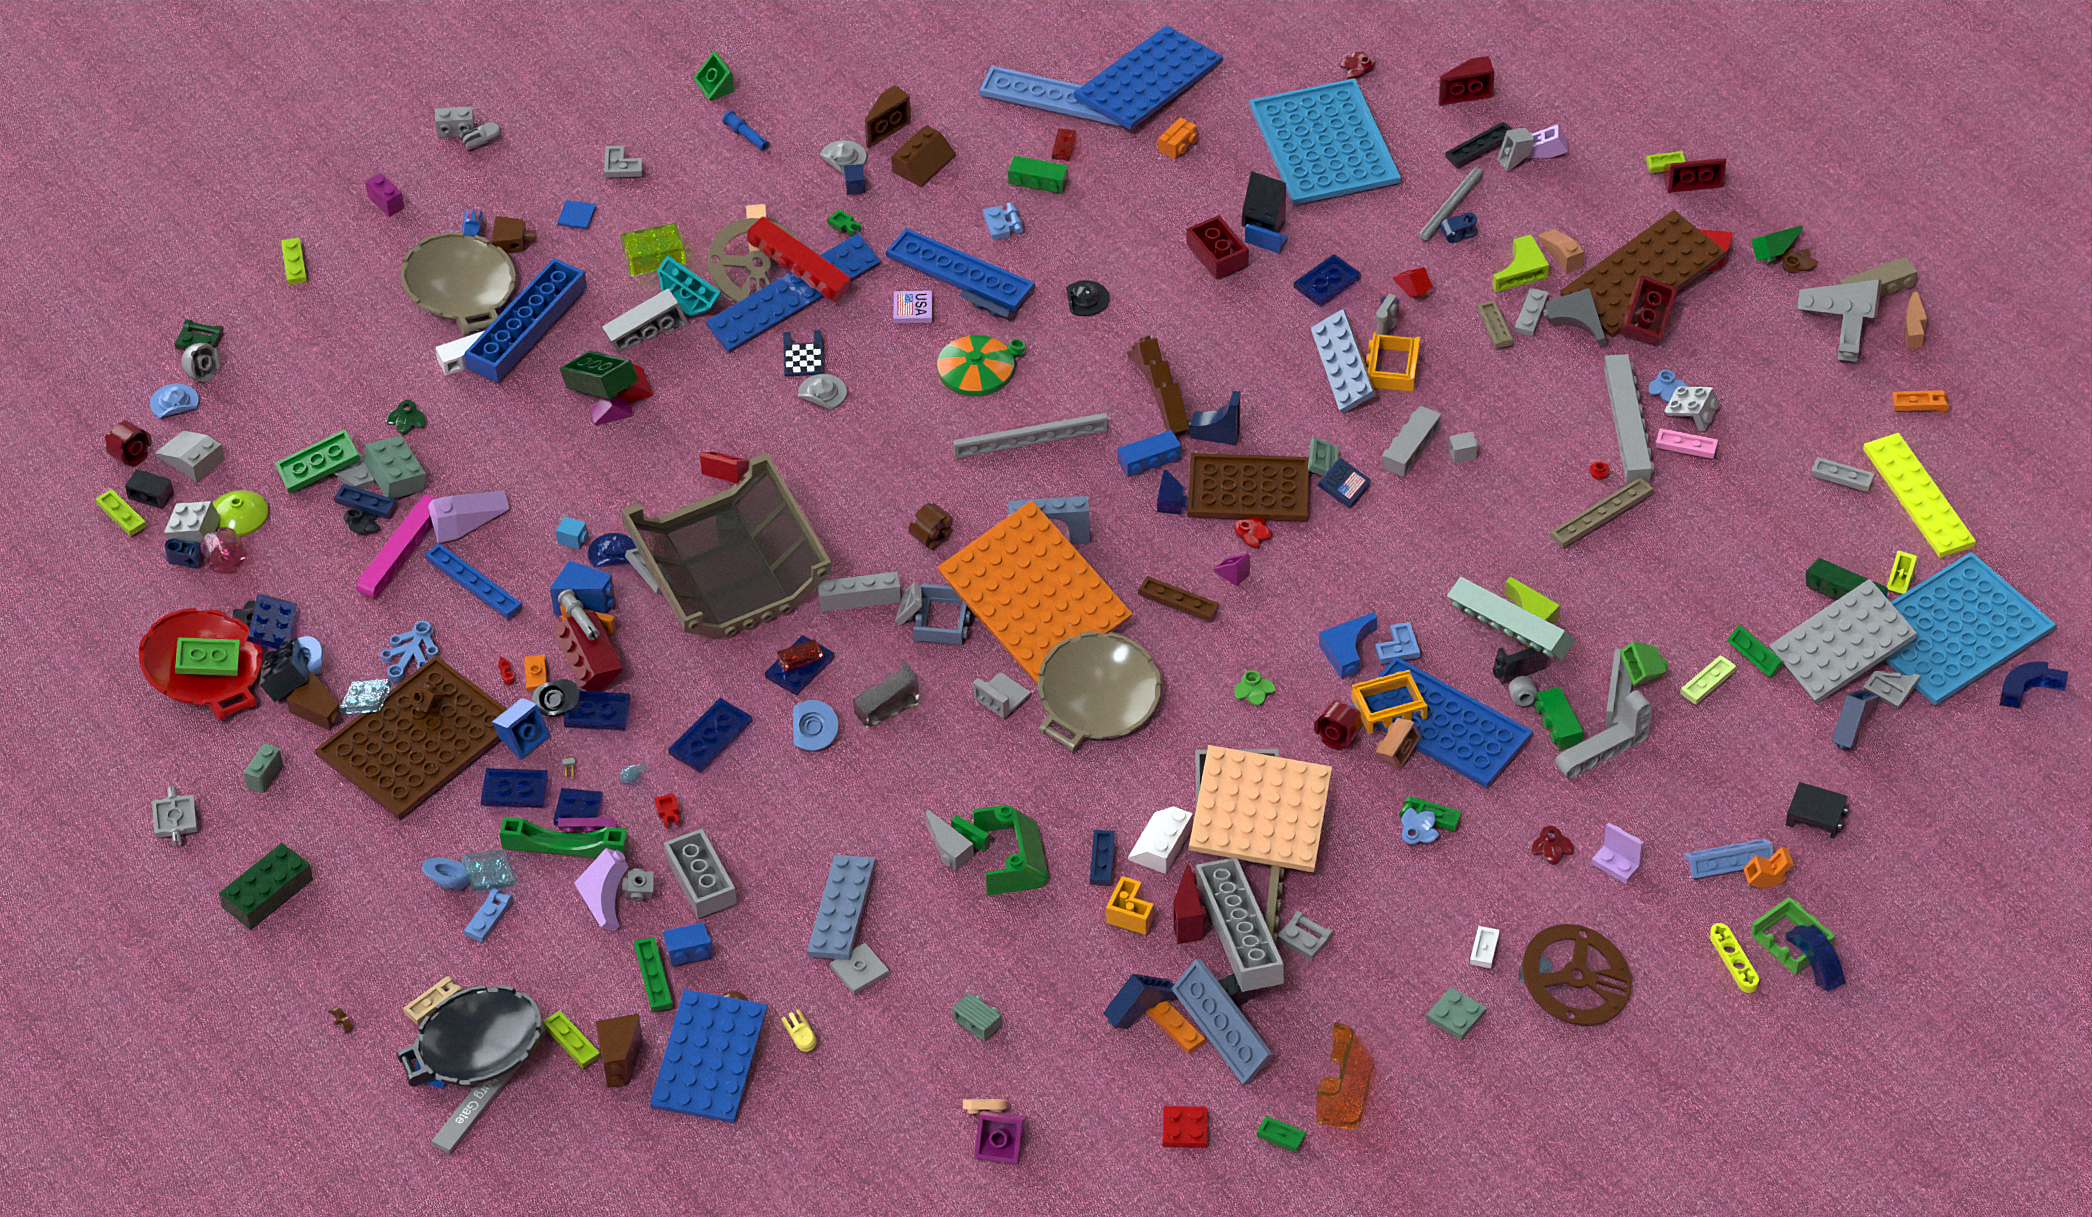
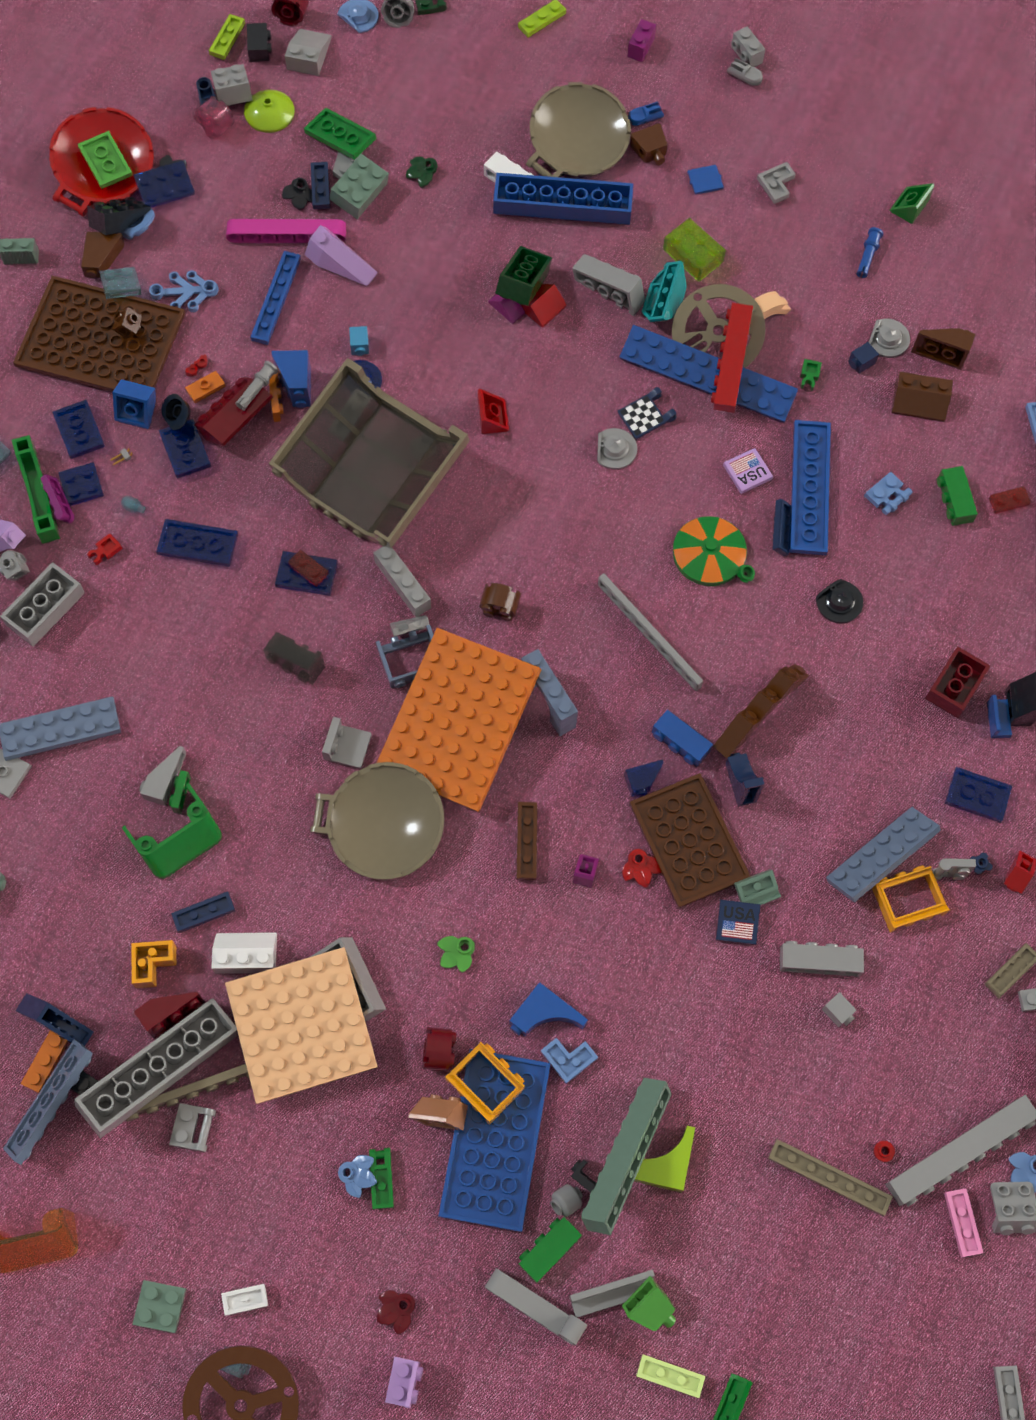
camera: 60 degrees right, 20 degrees up
(814, 725) = (239, 615): medium blue hat -> none

